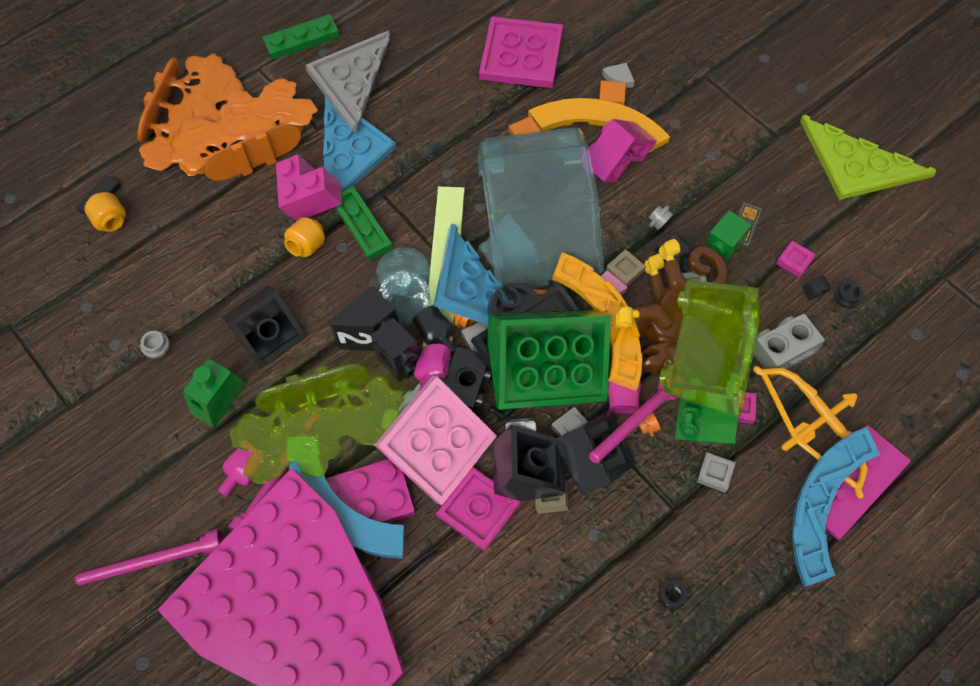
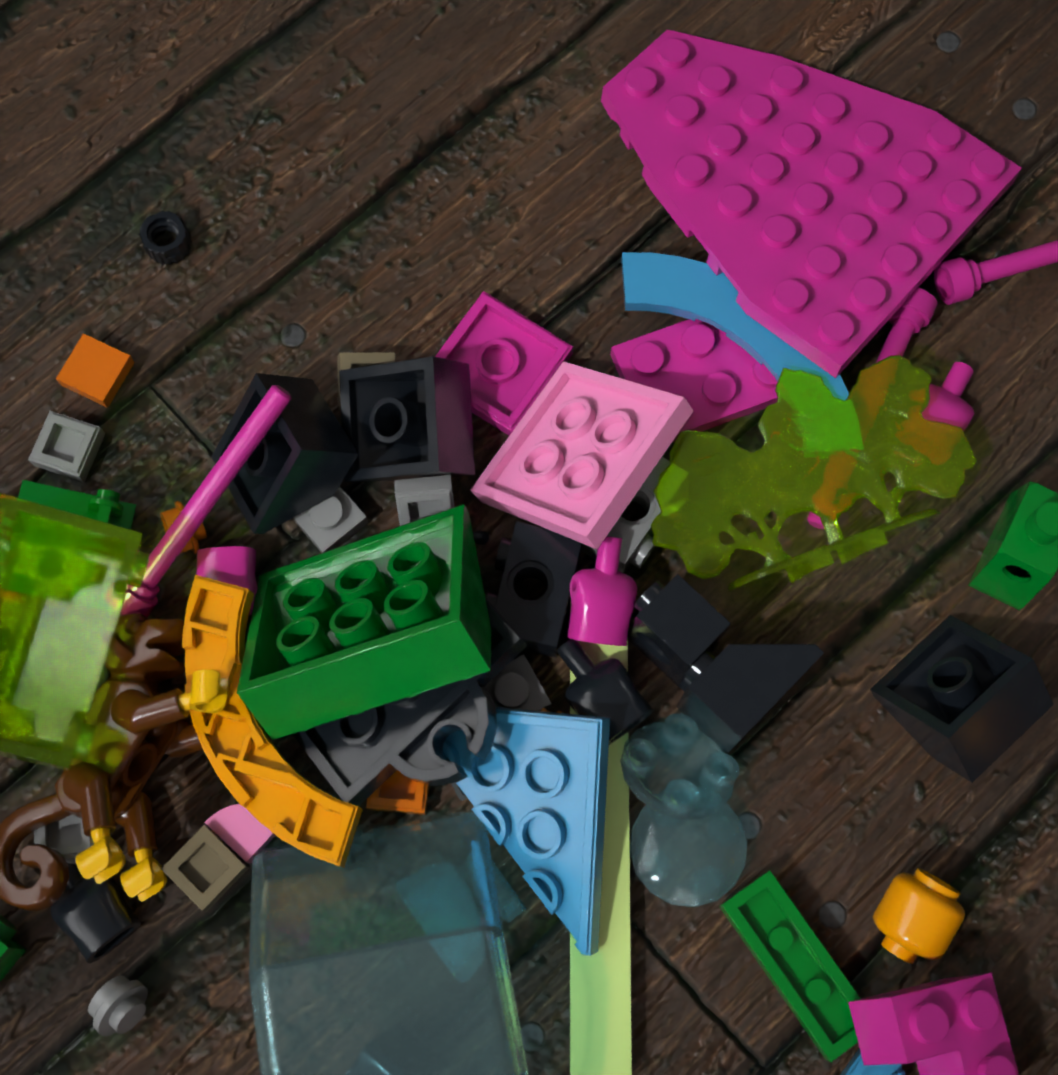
camera: 175 degrees right, 10 degrees up
(705, 514) = (95, 370): none -> orange tile

